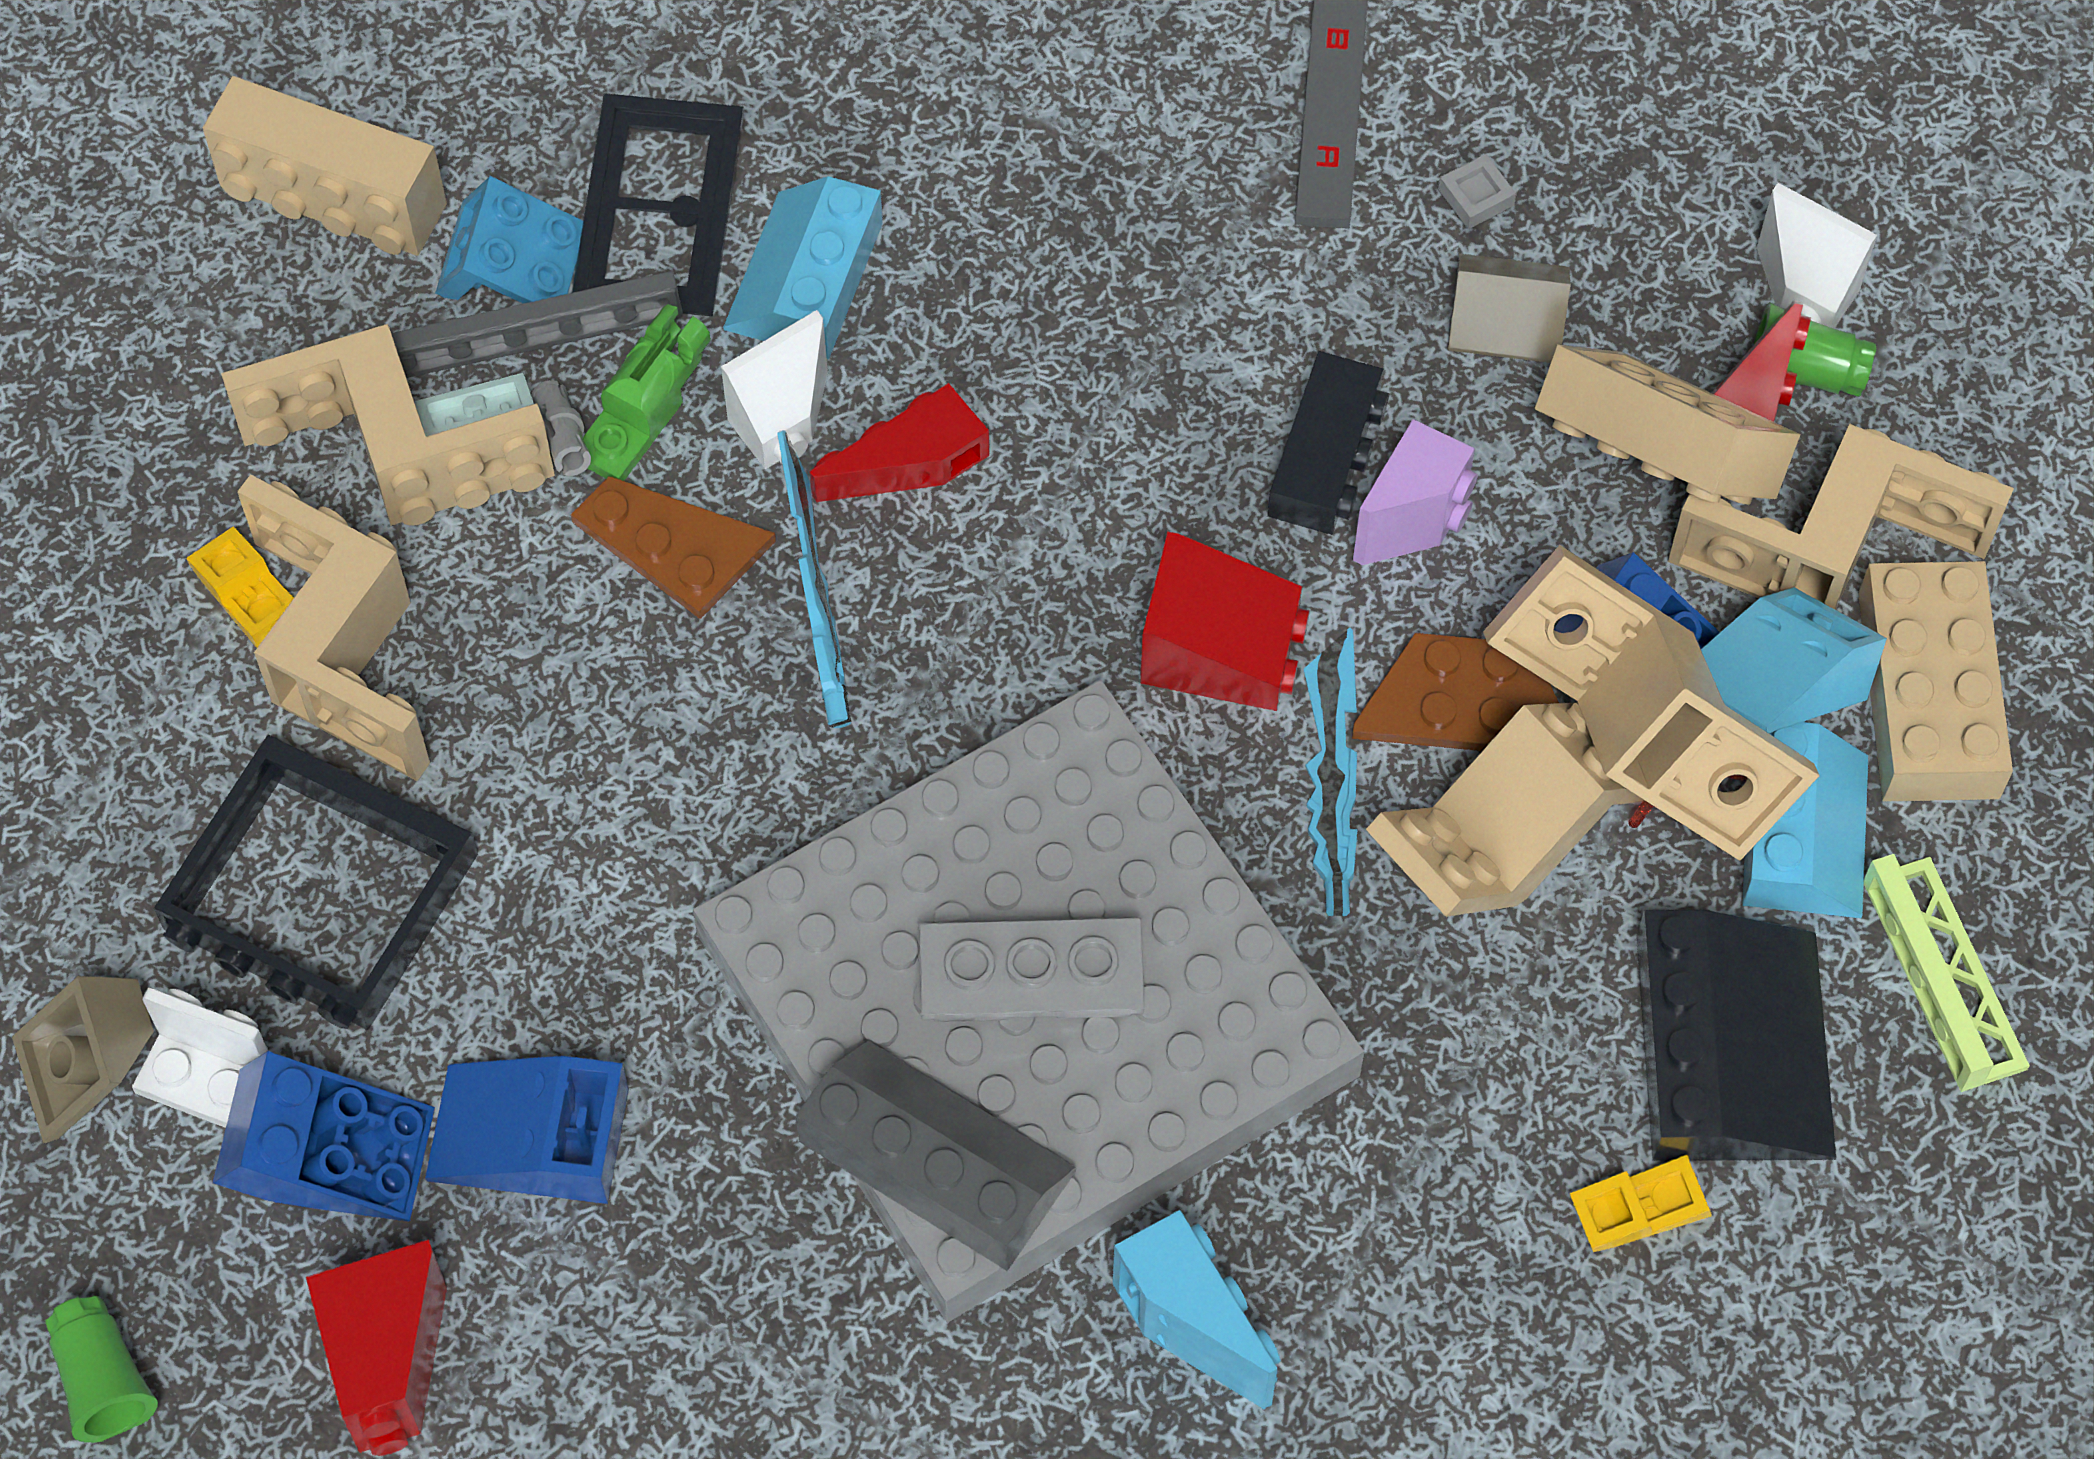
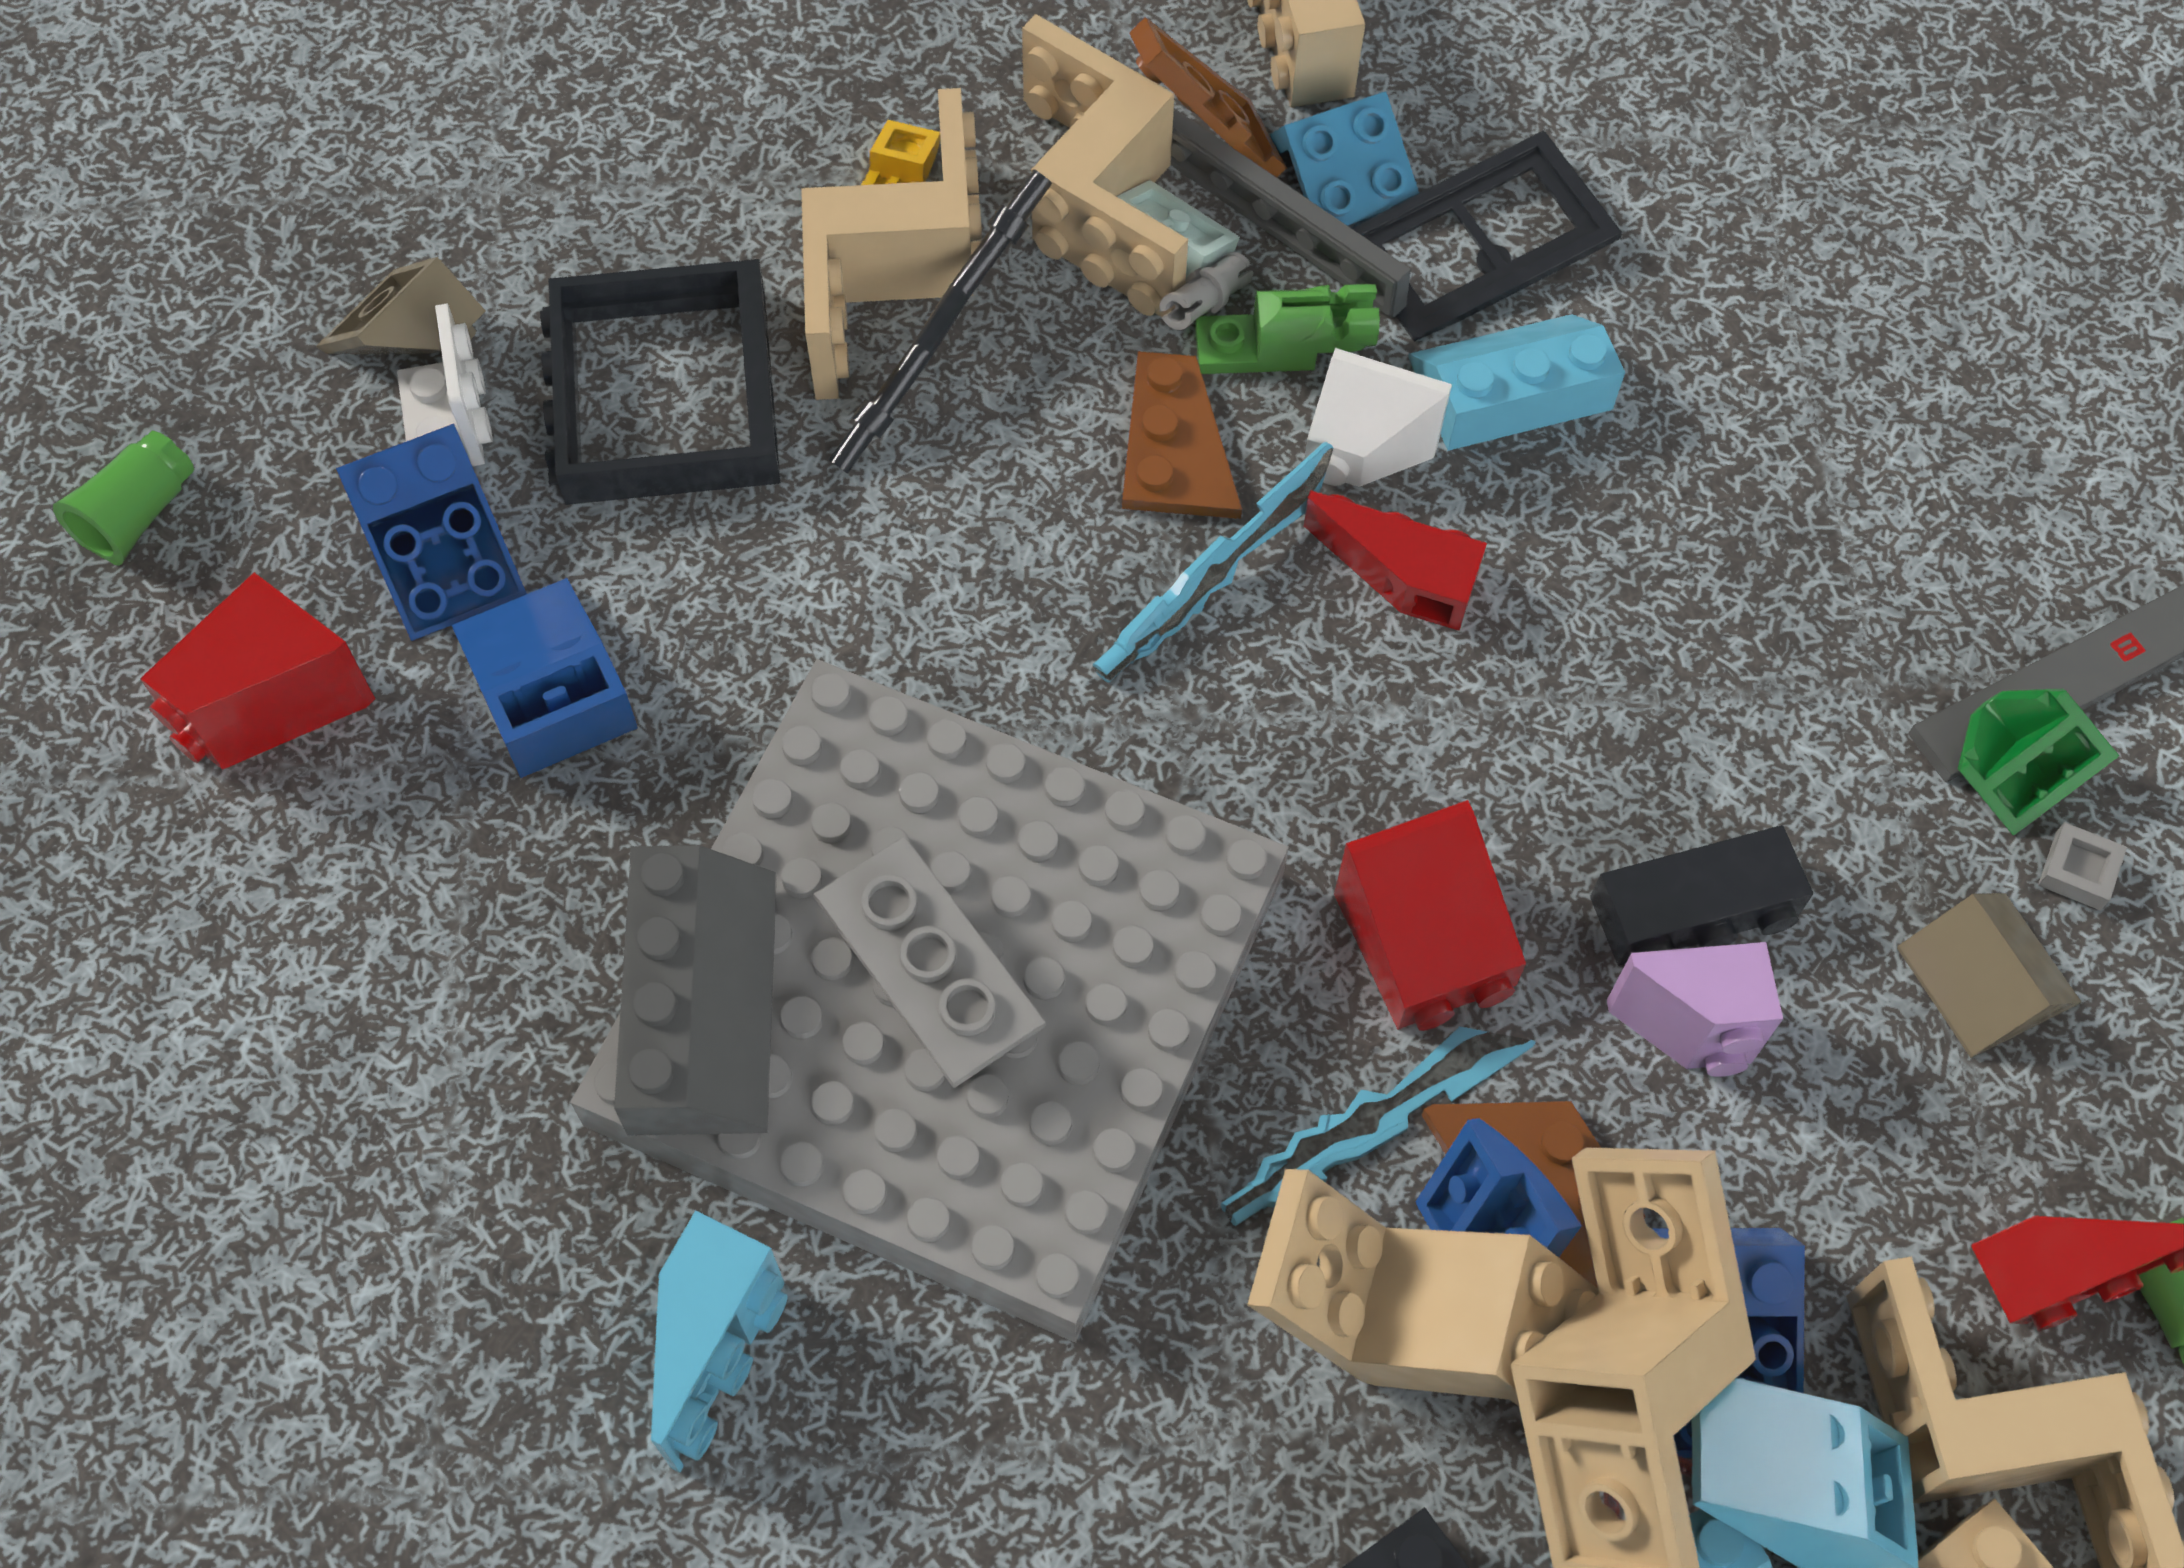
camera: 55 degrees right, 0 degrees up
(391, 303) = (1205, 94): none -> dark orange wing
(410, 527) = (1006, 227): none -> black bar
(1376, 158) = (2030, 753): none -> green slope
(1457, 720) = (1495, 1189): none -> blue slope
(1666, 424) = (1970, 1192): tan brick -> none

